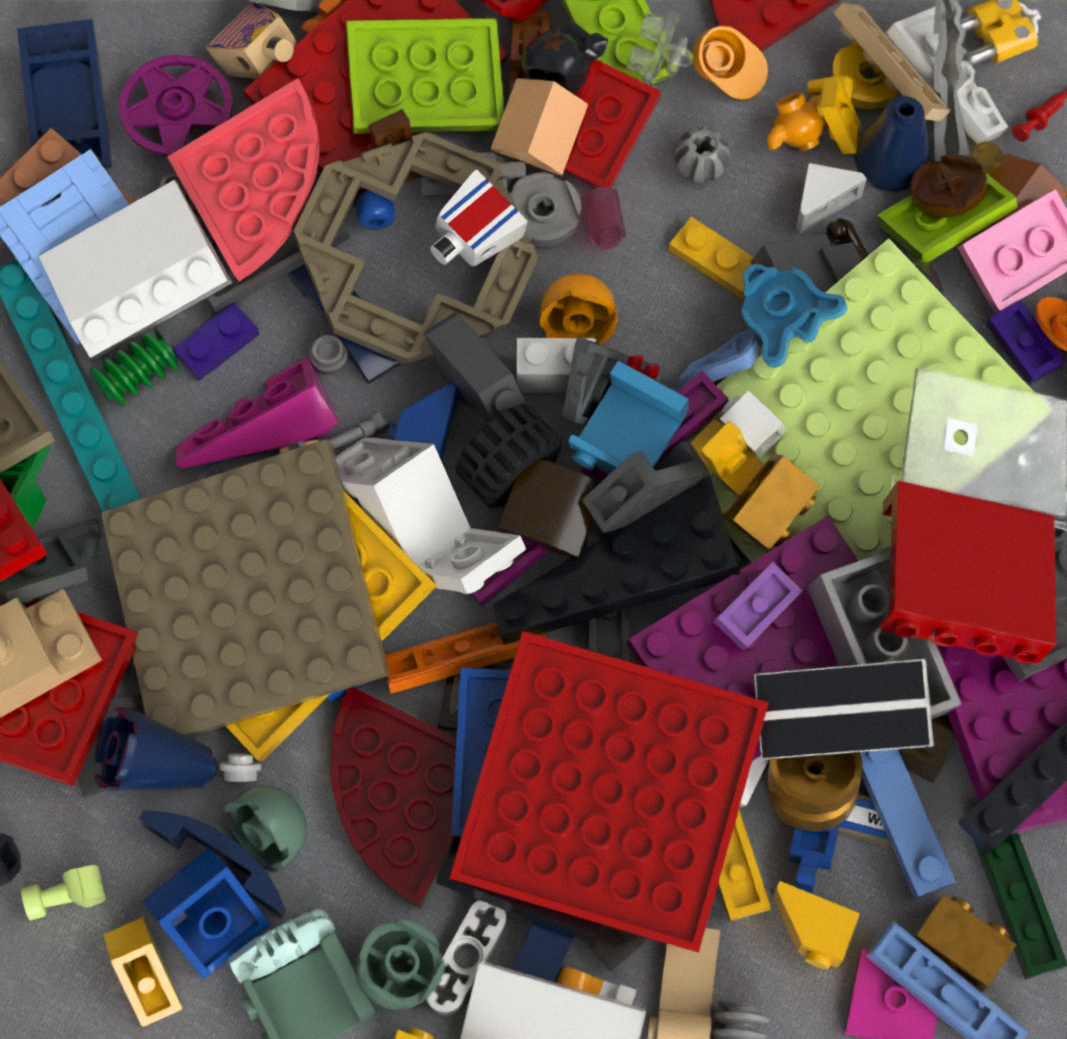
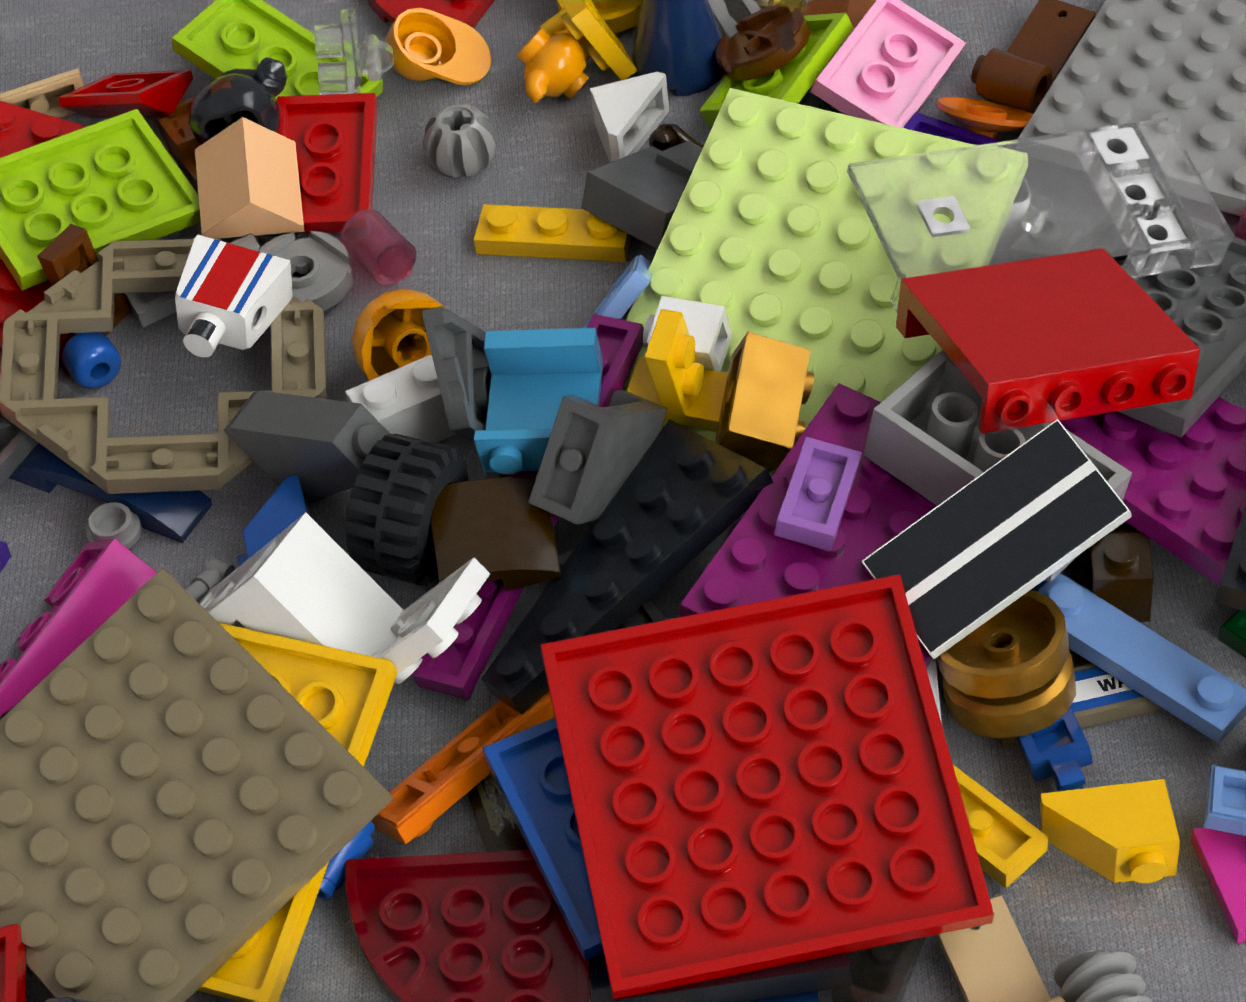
camera: 20 degrees left, 20 degrees down
(785, 307) = (653, 210): dark azure tile -> none

